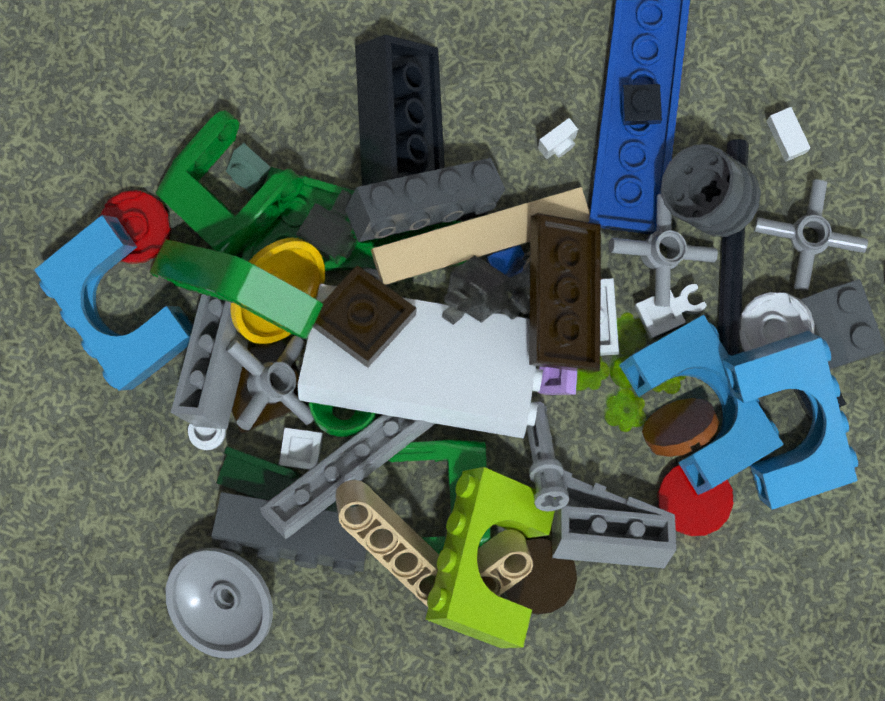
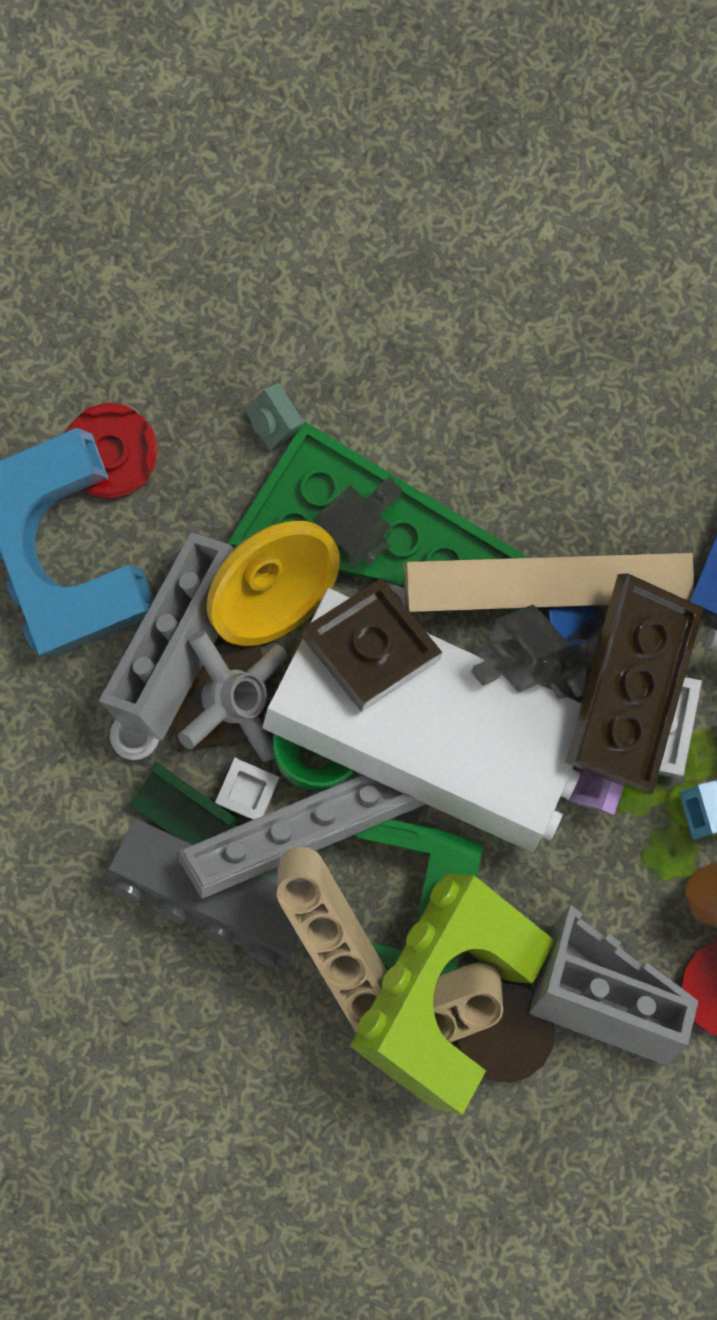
camera: 10 degrees right, 0 degrees up
(203, 210) = (205, 455): green connector -> none
(208, 614) = (72, 958): light grey dish -> none
(239, 283) = (225, 560): green beam -> none
(398, 108) = (485, 400): black slope -> none
(424, 199) = (489, 517): dark grey brick -> none
(546, 469) = (550, 899): light grey pin -> none
(558, 140) = (679, 485): white plate -> none

